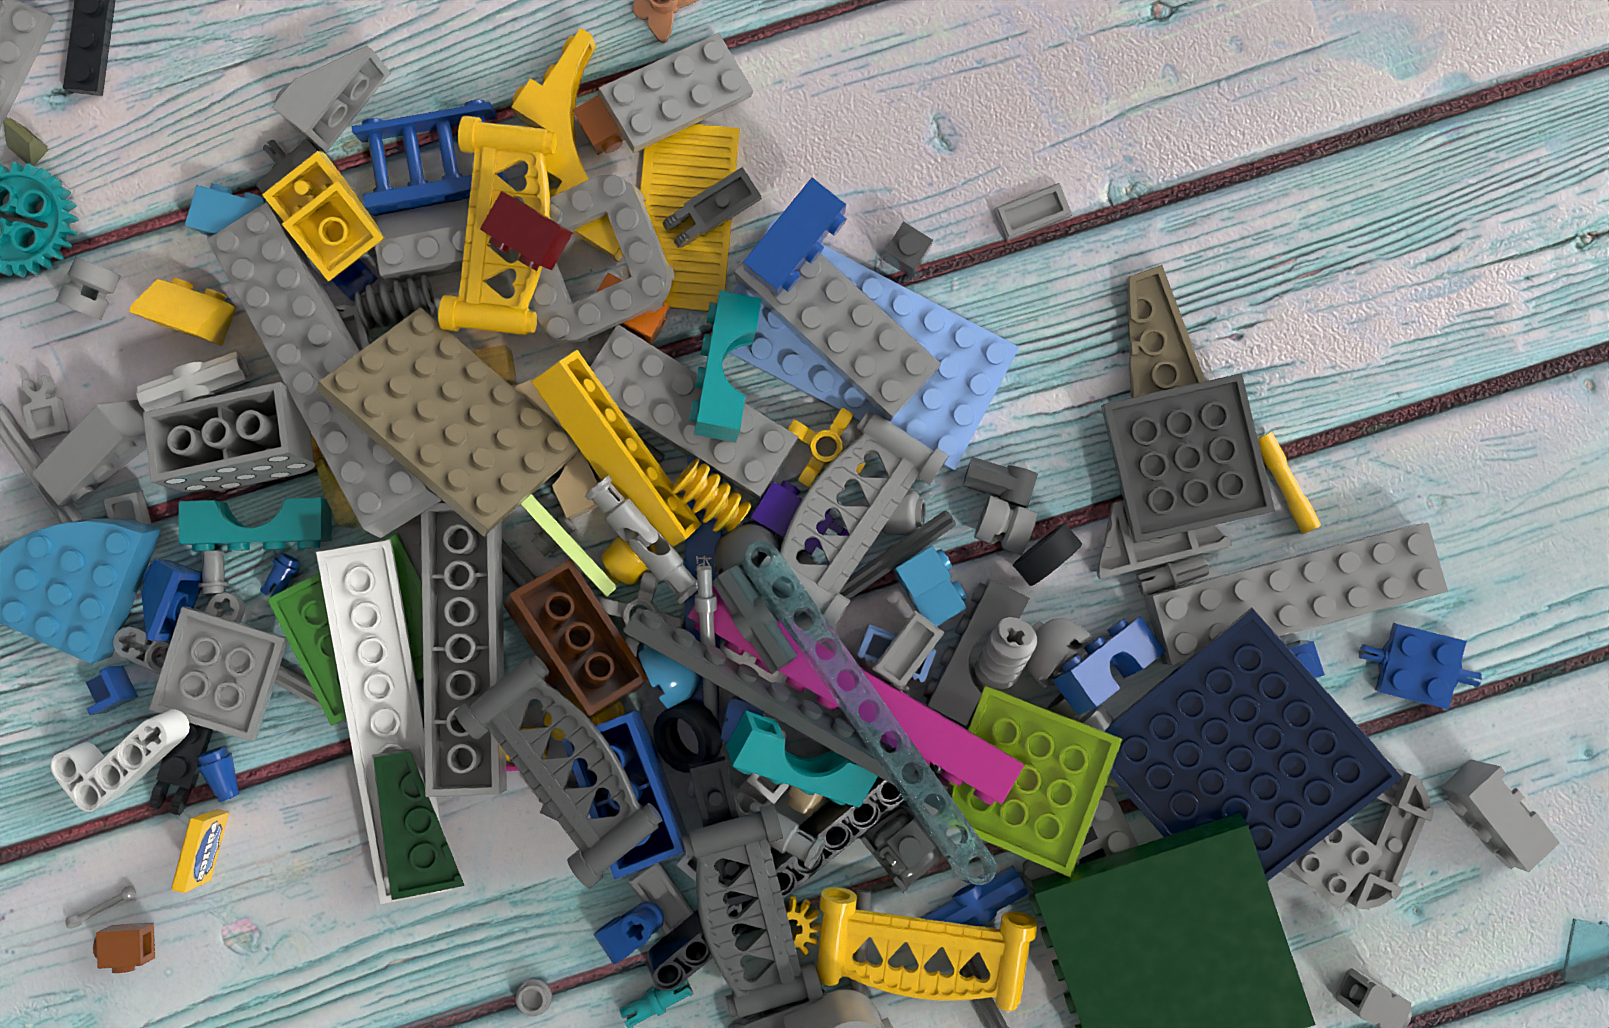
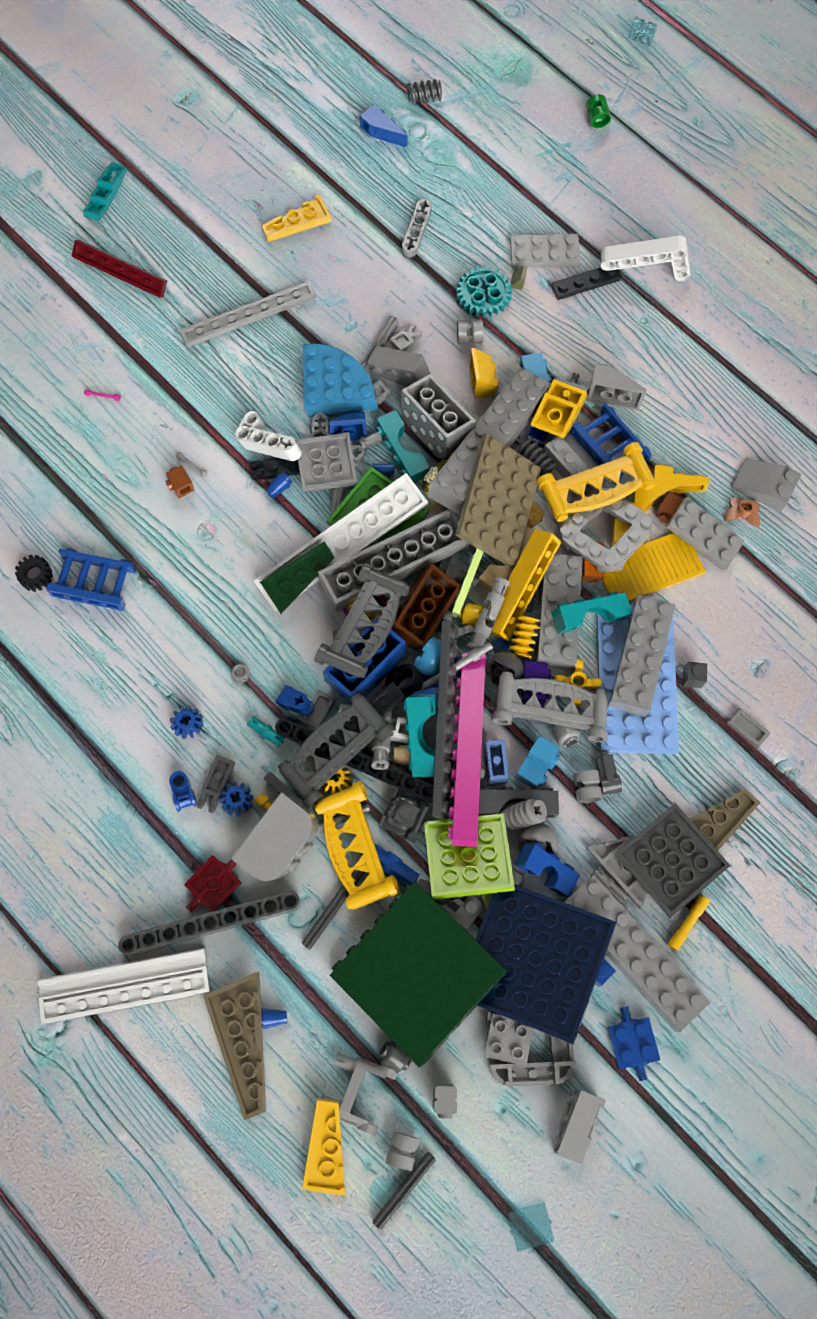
camera: 60 degrees right, 15 degrees down
(110, 690) = (293, 422): blue panel -> none
(194, 382) = (456, 391): white piece -> none
(200, 850) = (241, 491): yellow tile -> none
(525, 231) = (603, 492): dark red brick -> none
(714, 206) = (661, 576): dark grey hinge -> none
(754, 619) = (479, 681): dark grey piece -> none
(796, 237) = (670, 610): blue brick -> none
(884, 720) = (460, 759): clear light blue beam -> none
(897, 554) = (533, 735): dark grey axle -> none
(908, 650) = (502, 763): light grey tile -> none
(1047, 554) = (585, 813): black tyre -> none

